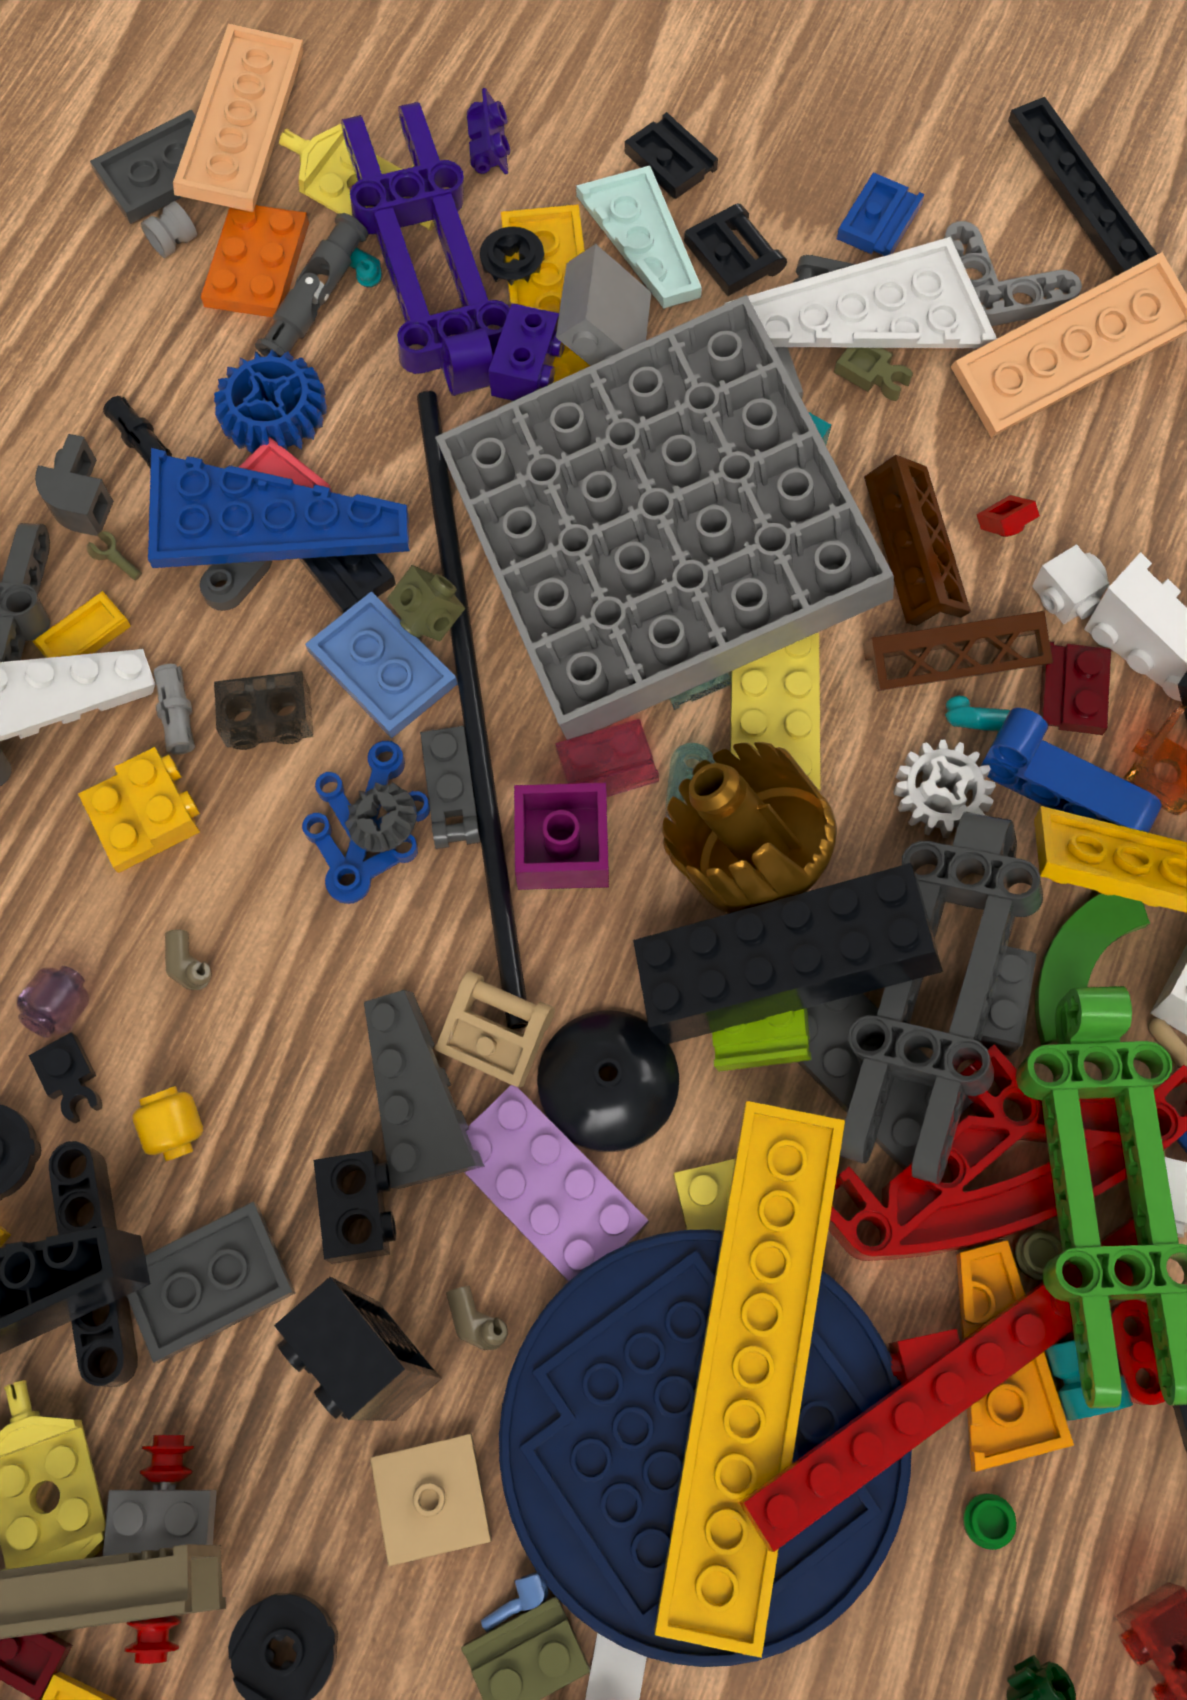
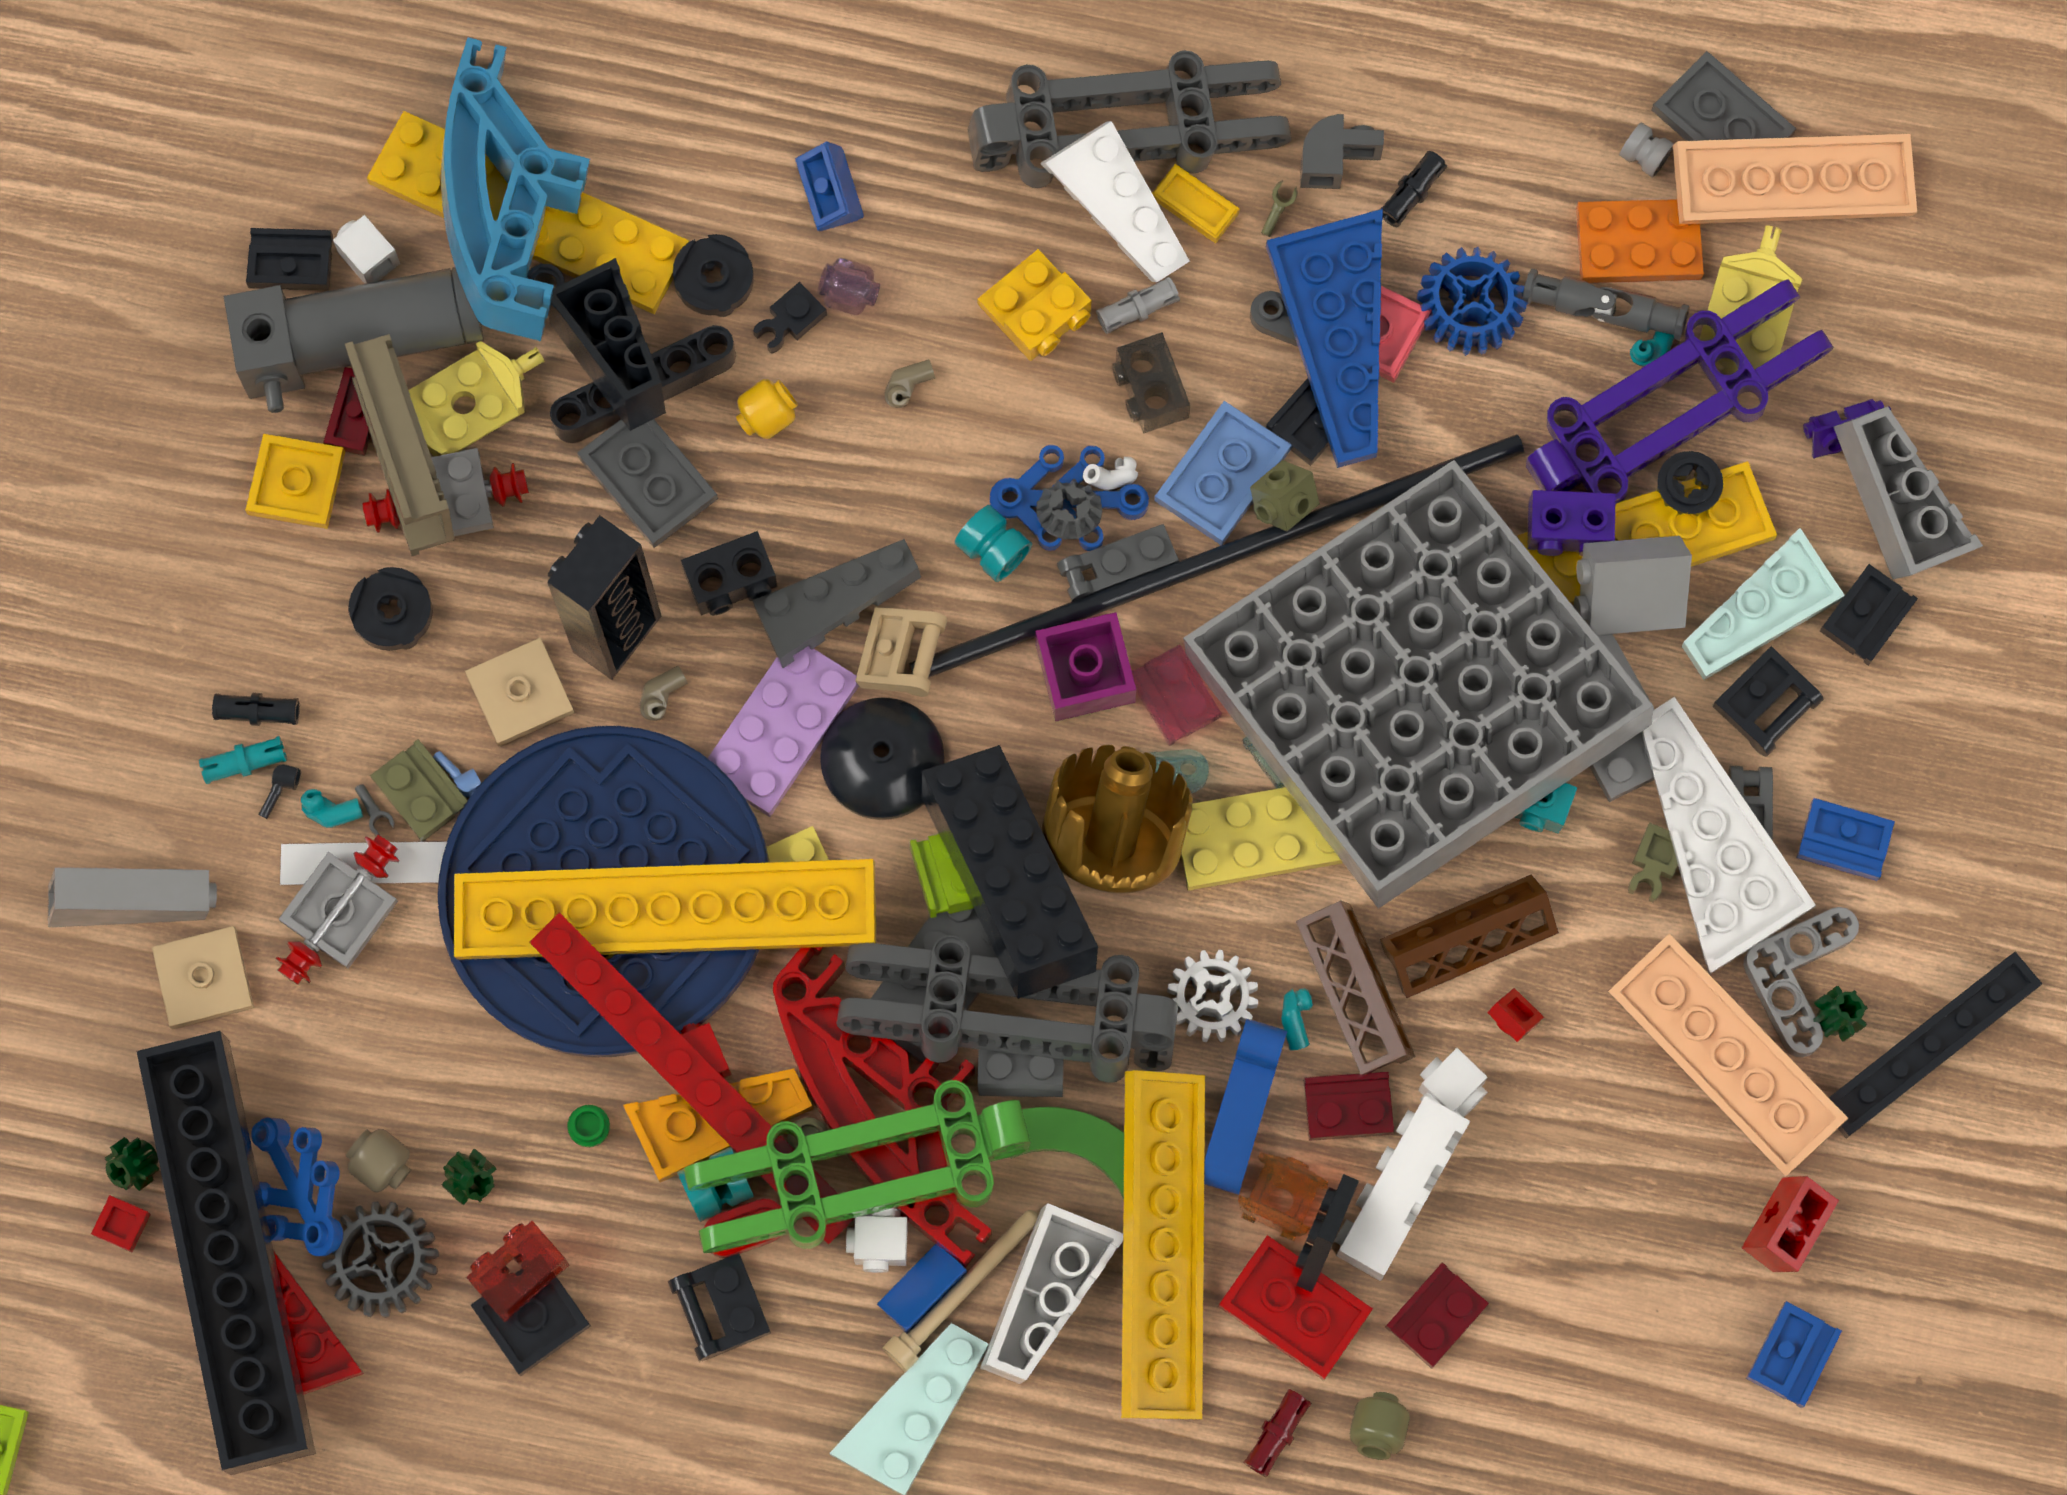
camera: 75 degrees right, 5 degrees up
(356, 765) = (1111, 479): none -> white arm
(396, 905) = (987, 538): none -> teal wheel
(570, 93) = (1901, 496): none -> light grey wedge
(1049, 249) = (1840, 1013): none -> dark green gear

